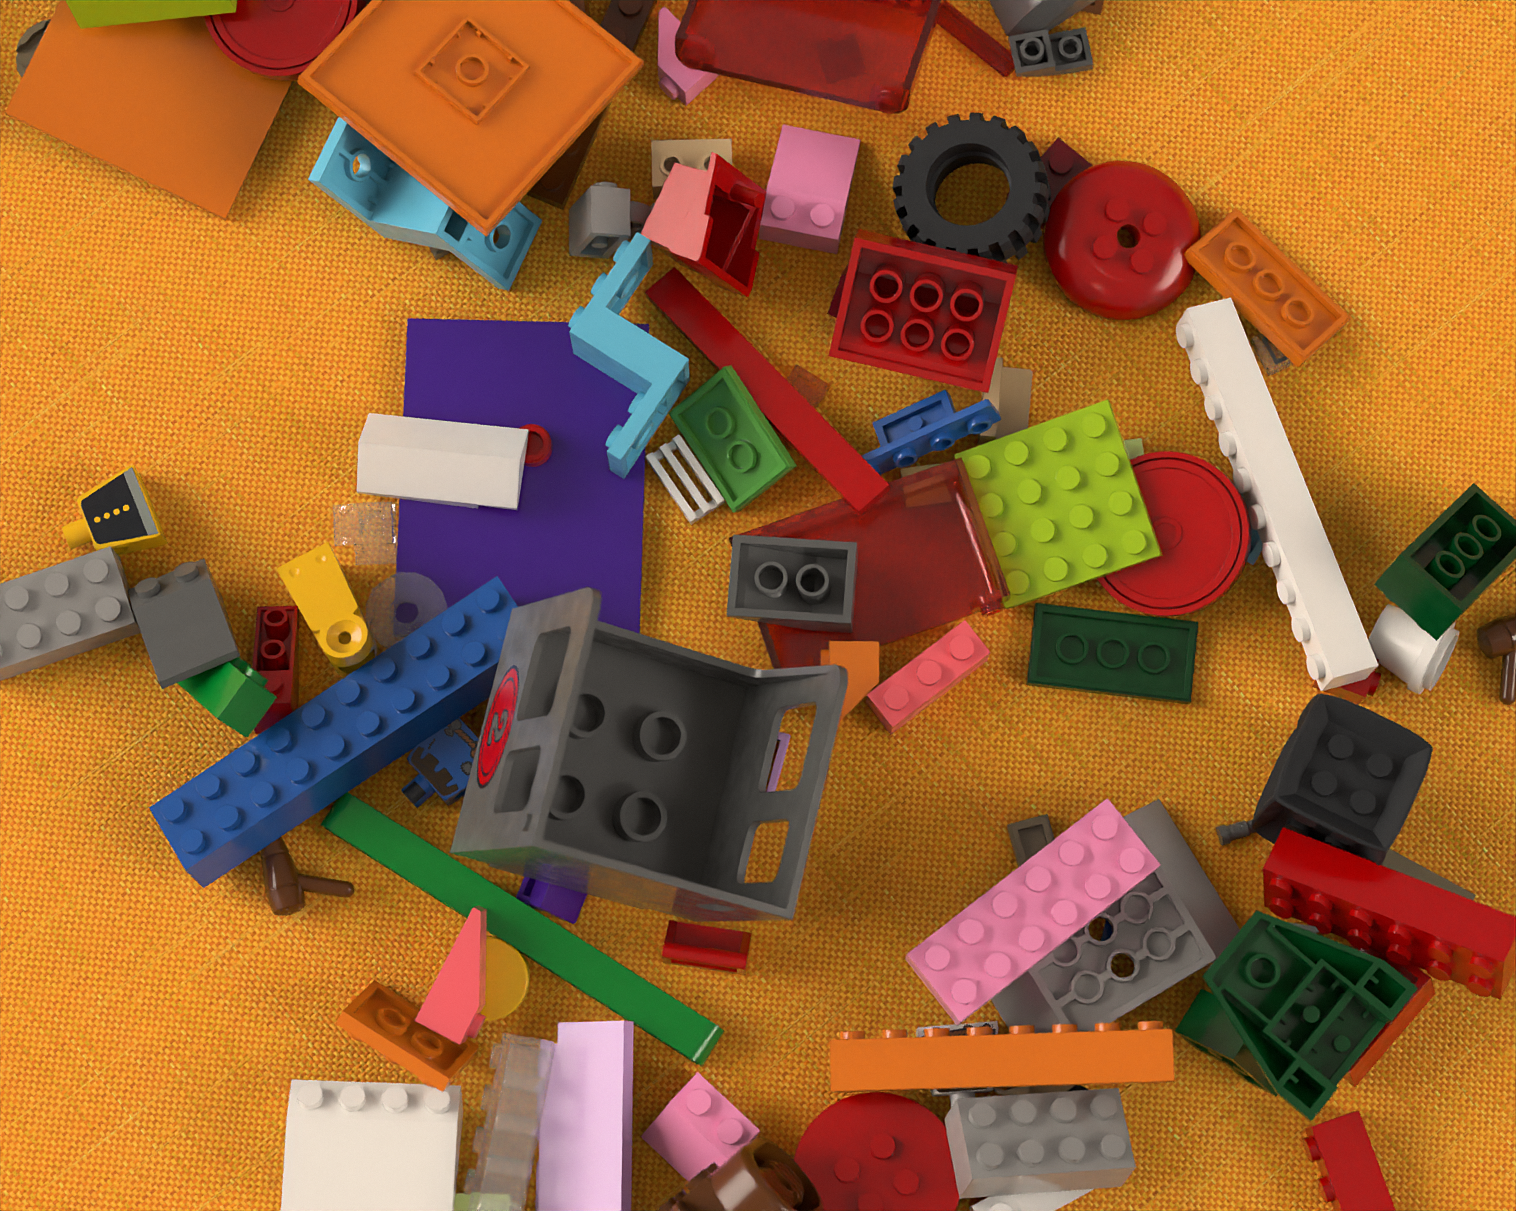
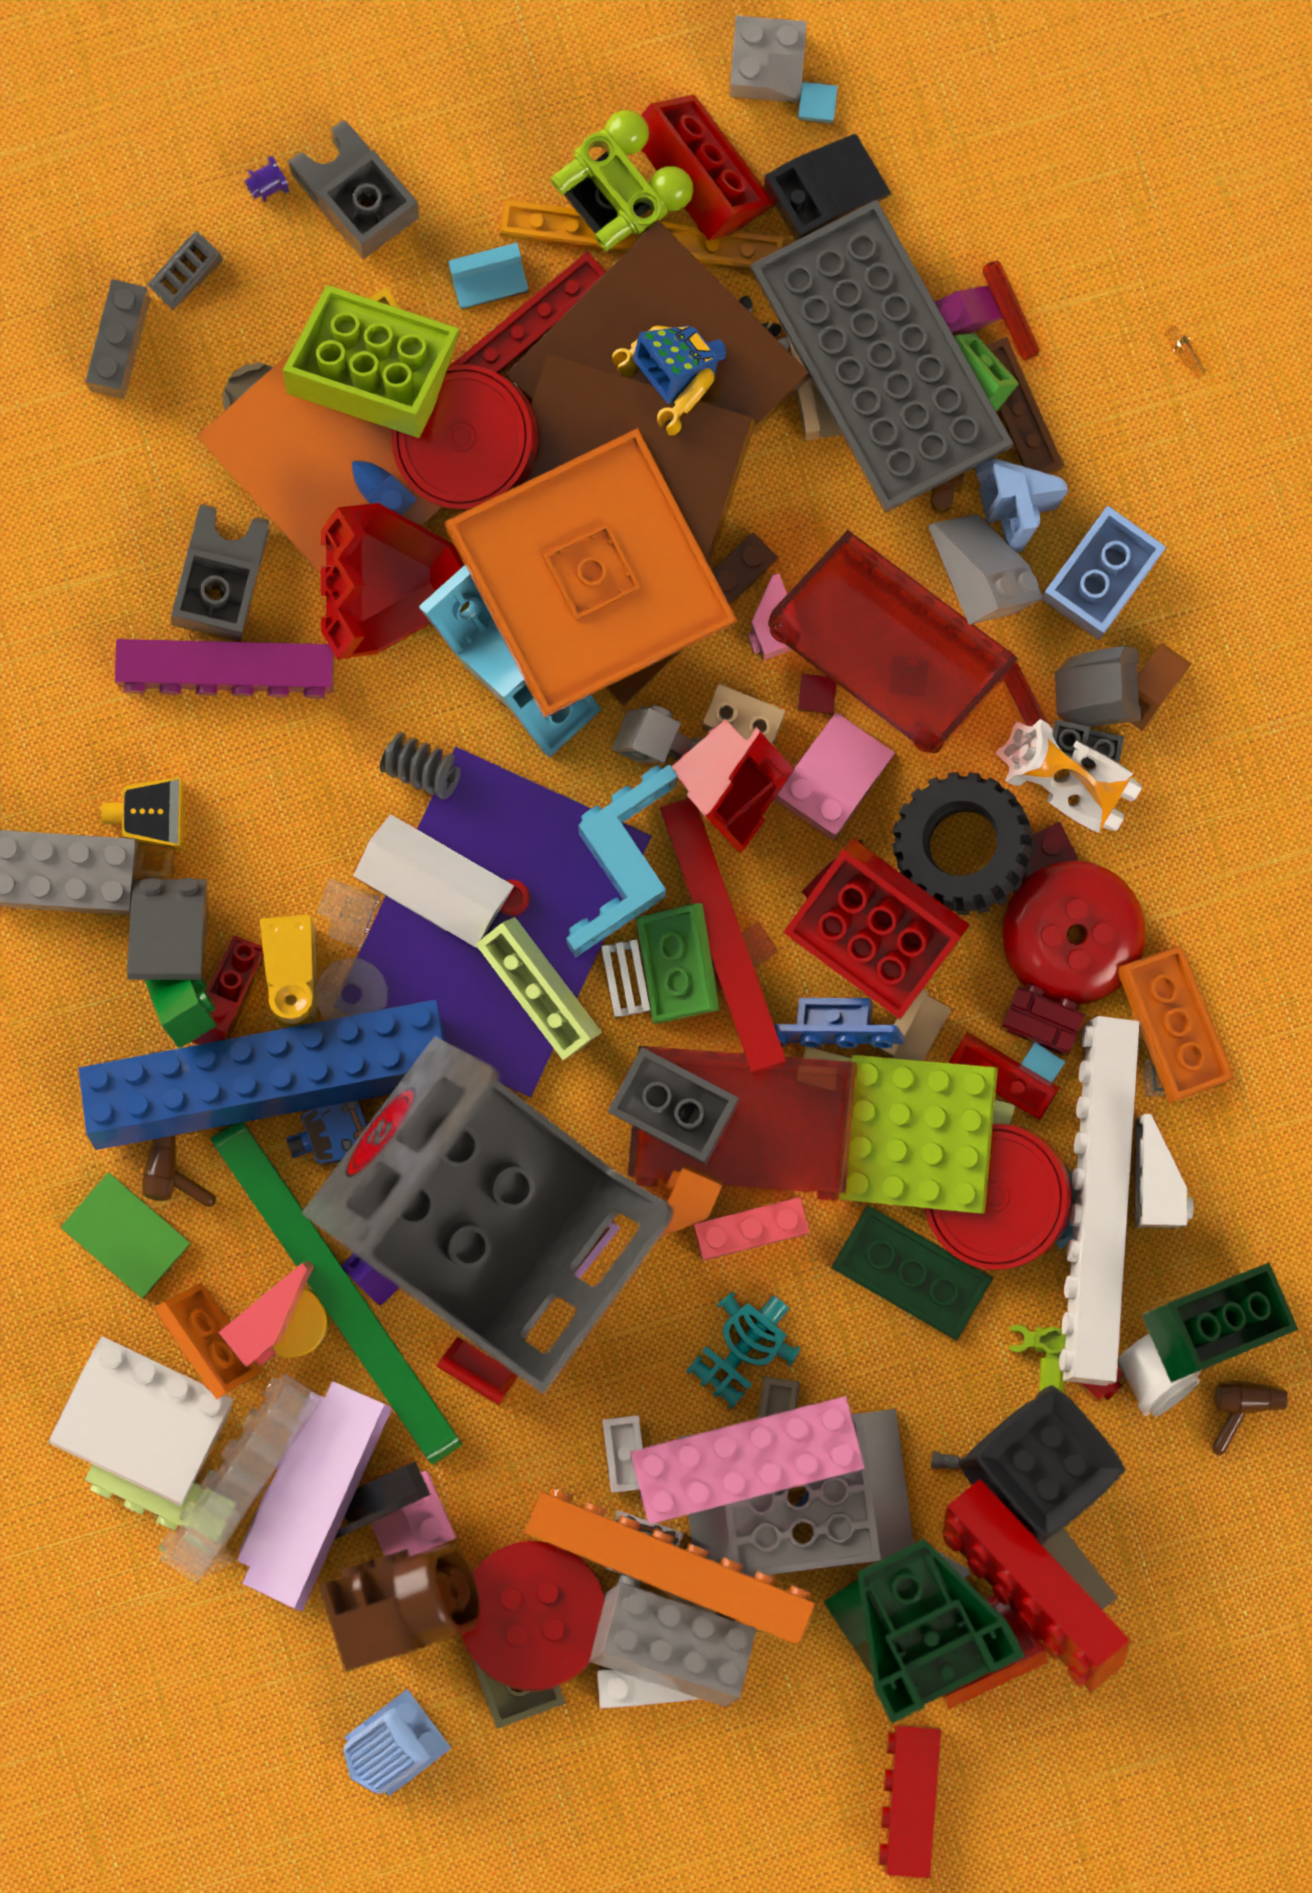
camera: 20 degrees right, 5 degrees up
(86, 237) = (220, 566): none -> dark grey brick
(132, 337) = (224, 666): none -> magenta brick
(142, 563) = (154, 861): none -> clear yellow slope
(222, 91) = (381, 487): none -> blue plate
(253, 178) = (378, 578): none -> red panel
(273, 965) = (125, 1235): none -> bright green tile
(379, 350) = (420, 767): none -> dark grey piece
(599, 521) = (538, 988): none -> yellowish green brick
(666, 1119) = (384, 1497): none -> black panel
(755, 114) = (817, 694): none -> dark red tile
(887, 954) = (621, 1438): none -> white plate
(984, 765) = (766, 1319): none -> teal piece
(1009, 75) = (1096, 788): none -> white hips
(1131, 340) = (1043, 1020): none -> dark red brick
(1135, 413) = (1014, 1080): none -> red tile
(1149, 390) = (1043, 1062): none -> medium azure tile
(1289, 662) = (1047, 1341): none -> lime bar
(1325, 449) = (1159, 1188): none -> white slope

